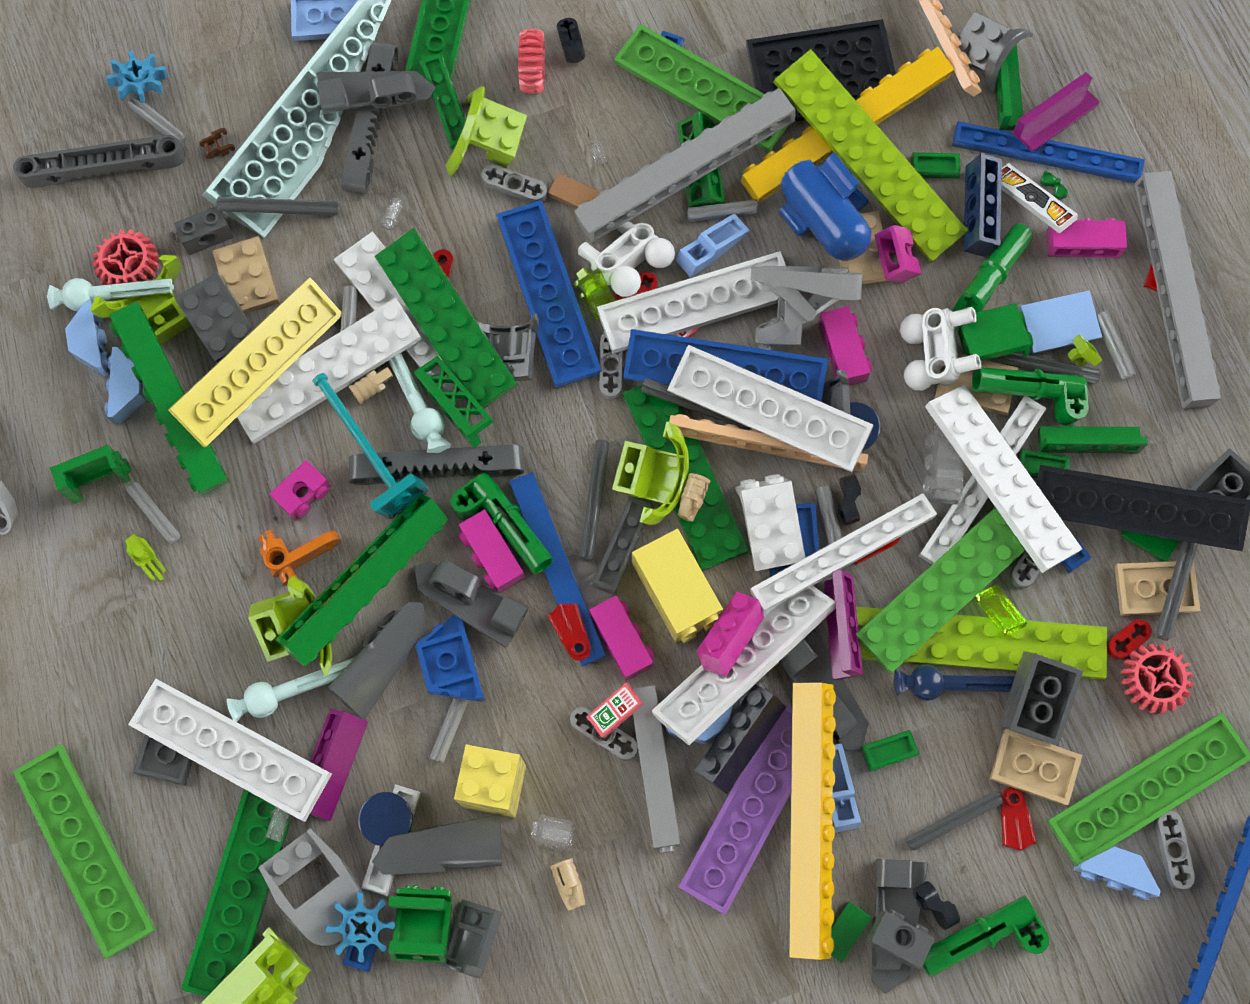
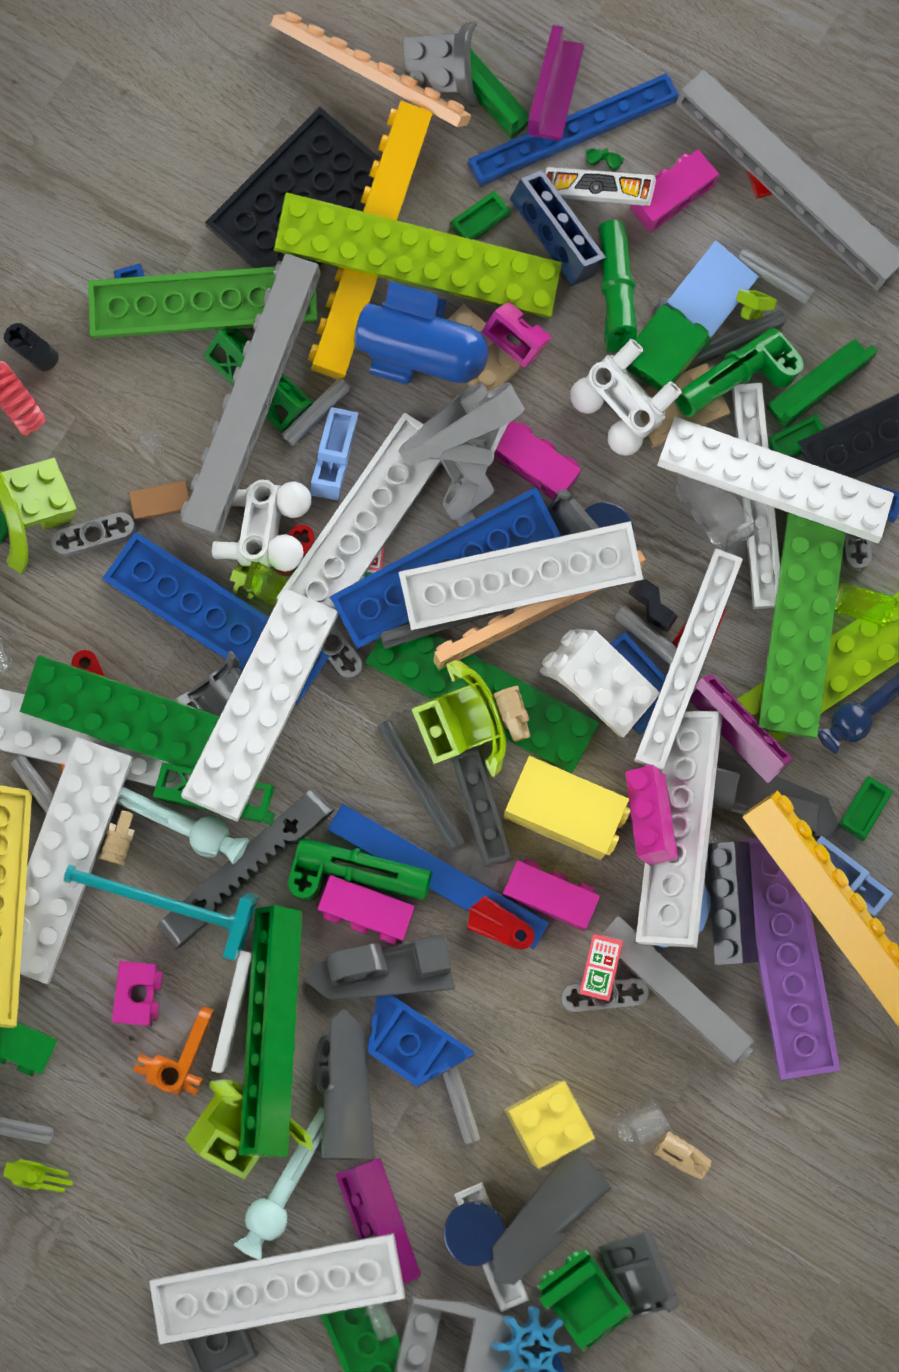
camera: 45 degrees left, 5 degrees up
(347, 552) = (232, 1012): none -> white tile
(527, 363) = (260, 705): none -> white plate

